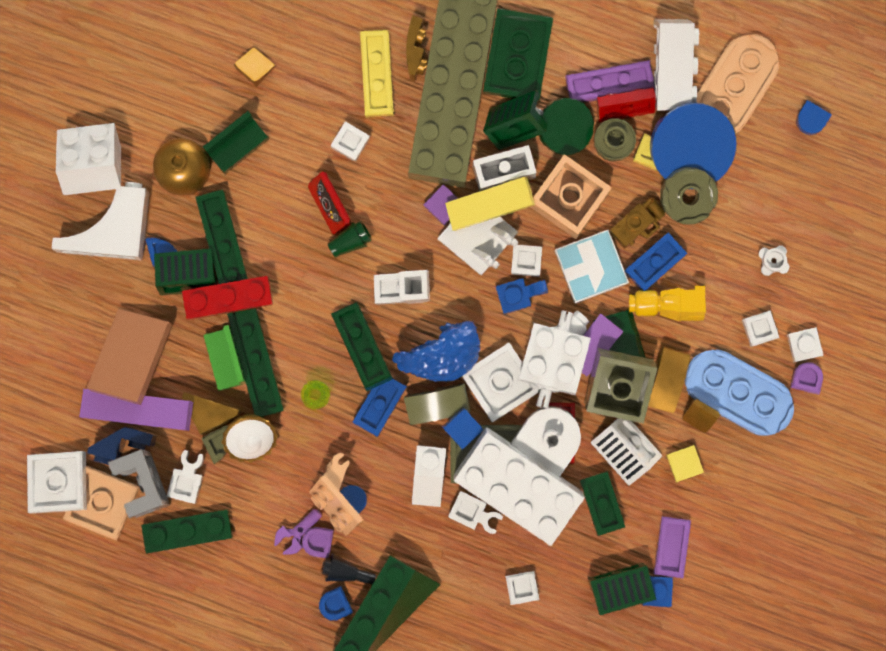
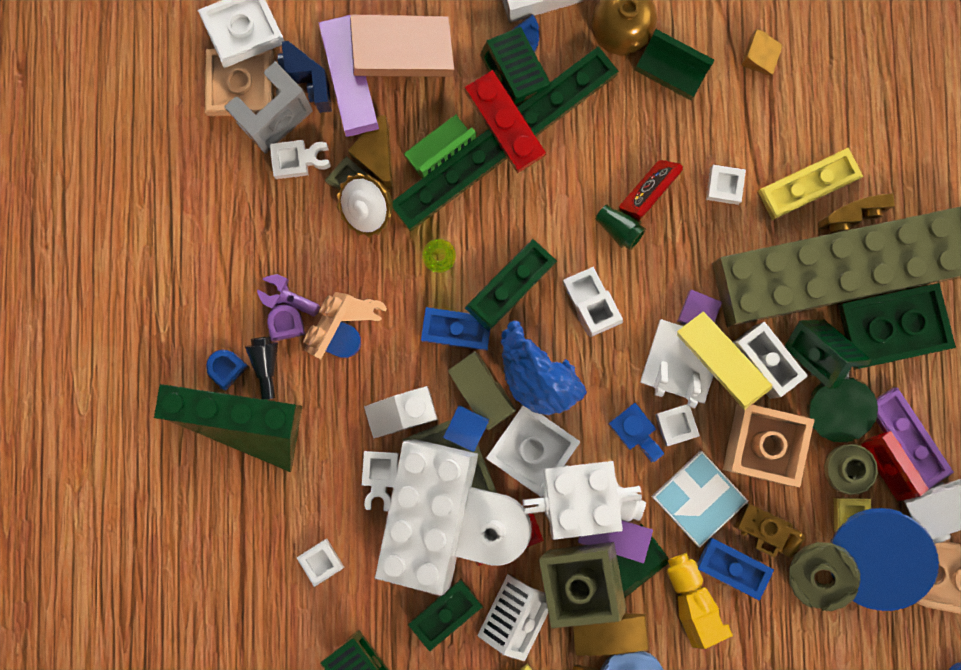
camera: 65 degrees right, 0 degrees up
(187, 531) = (243, 182): dark green plate -> none

